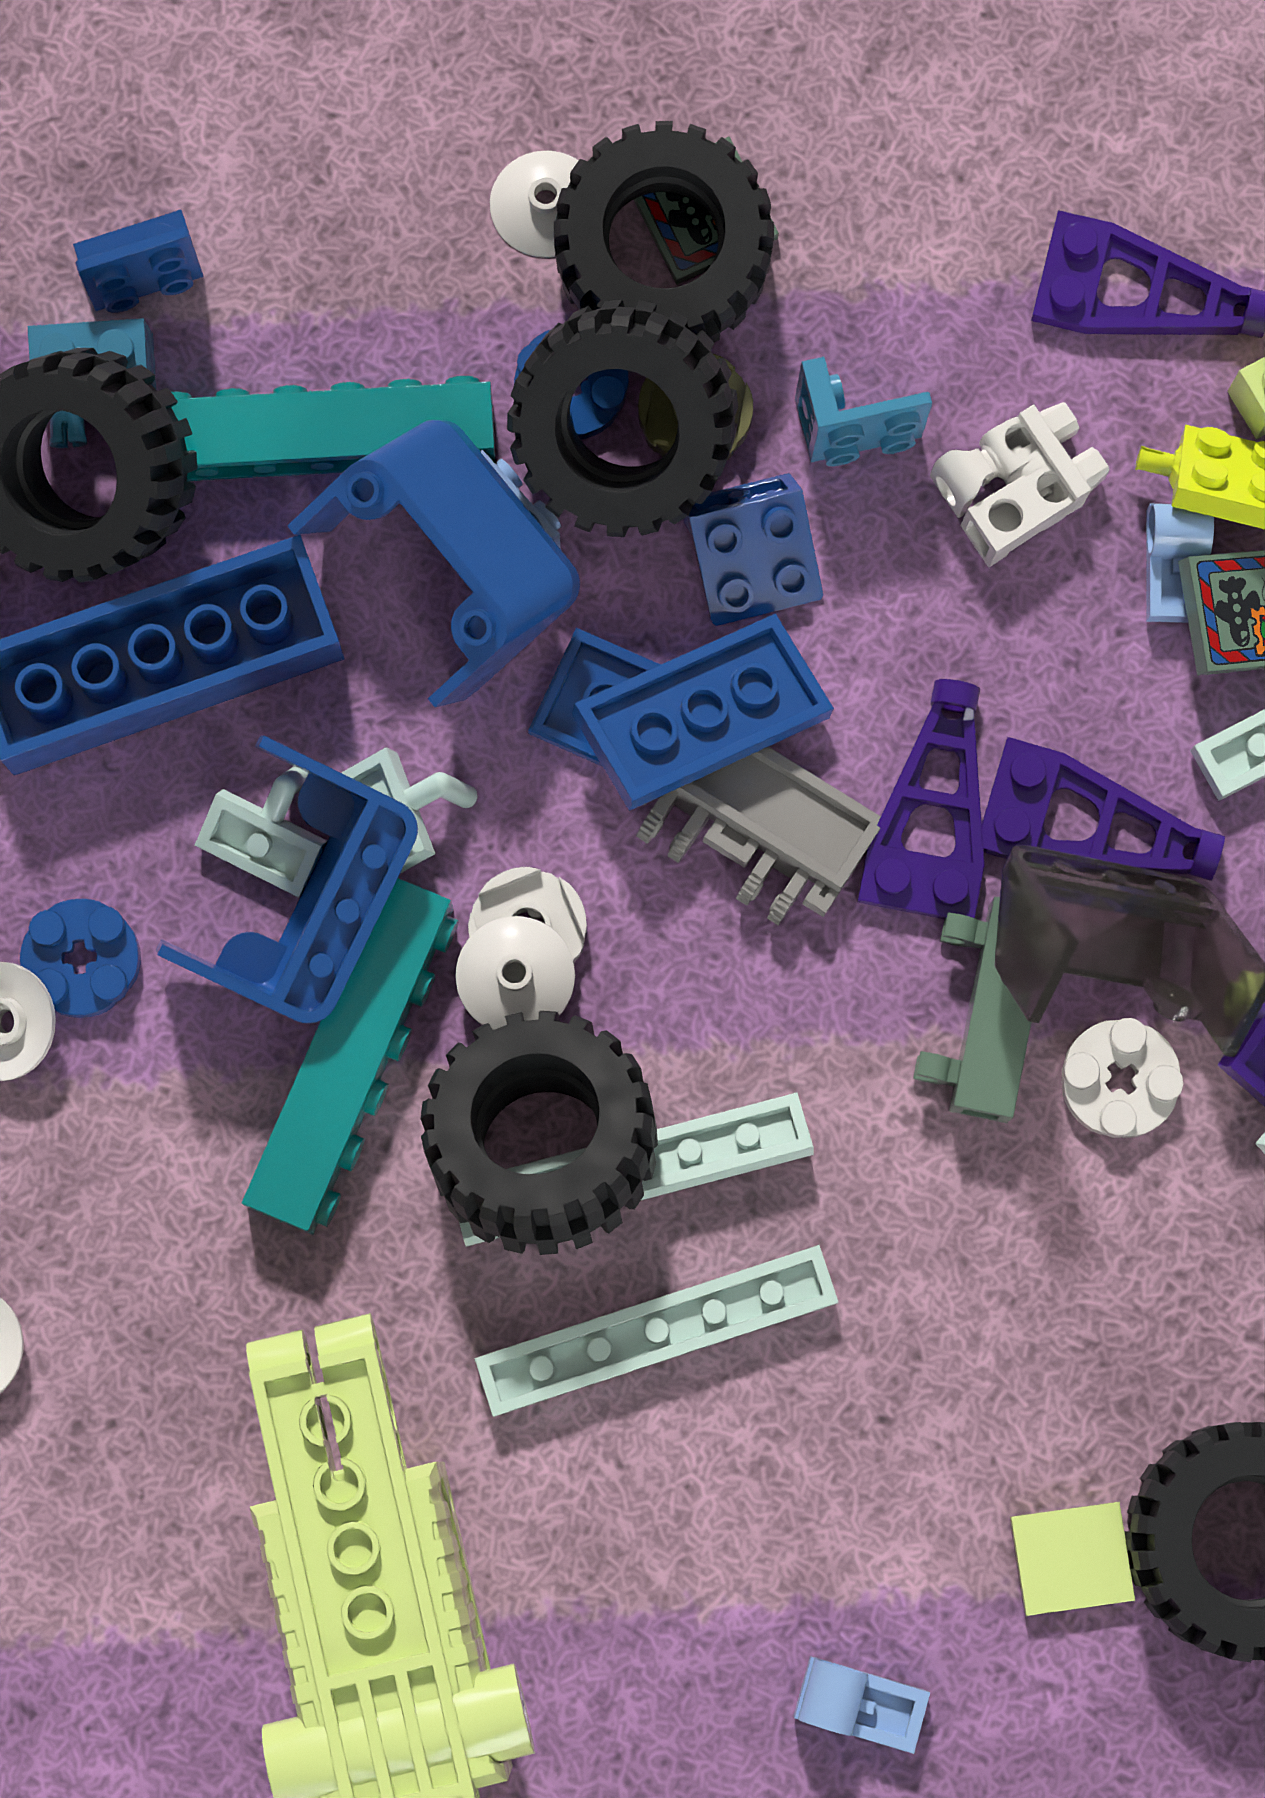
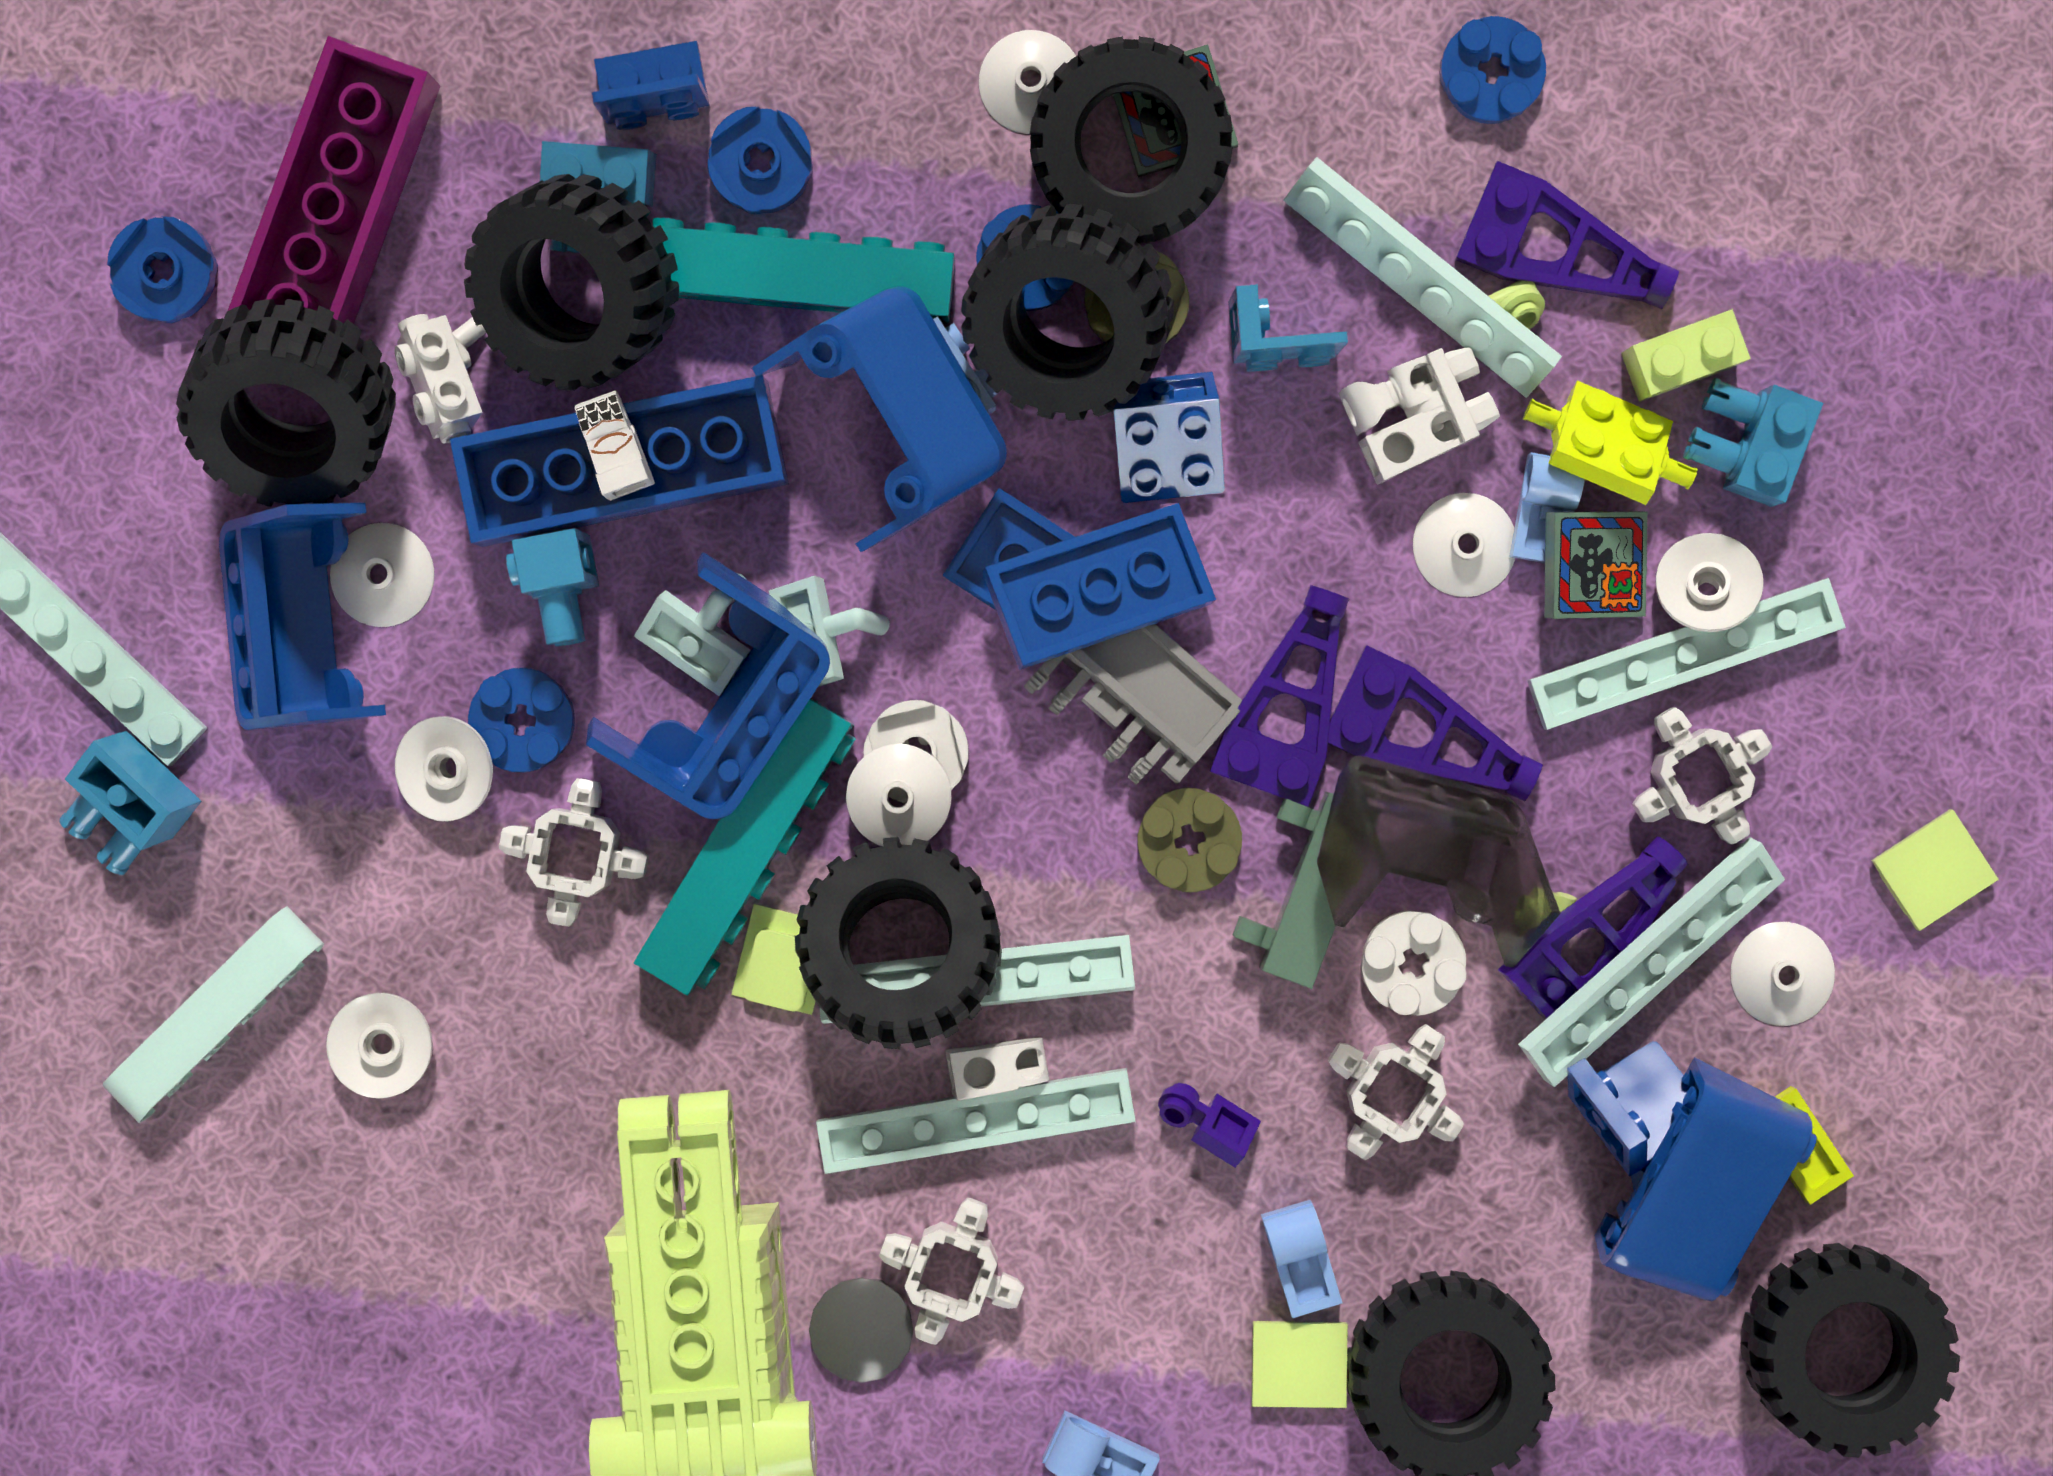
camera: 10 degrees right, 10 degrees up
(95, 1090) = (519, 841): none -> white piece
(100, 783) = (555, 572): none -> dark azure brick
(146, 630) = (613, 446): none -> white leg
(266, 290) = (767, 131): none -> blue plate
(400, 1189) = (769, 964): none -> yellowish green piece
(560, 1596) = (861, 1329): none -> dark grey dish
(669, 1264) = (996, 1067): none -> white leg
(719, 1521) = (1002, 1289): none -> white piece
(832, 1010) = (1205, 814): none -> olive plate
(934, 1293) = (1221, 1126): none -> dark purple plate
(999, 340) = (1422, 277): none -> light aqua plate
(1040, 89) = (1510, 93): none -> blue plate
(1054, 1433) = (1301, 1258): none -> light blue plate
(1078, 637) = (1438, 549): none -> white dish
(1105, 358) = (1521, 301): none -> yellowish green plate
(1150, 1168) = (1442, 1121): none -> white piece

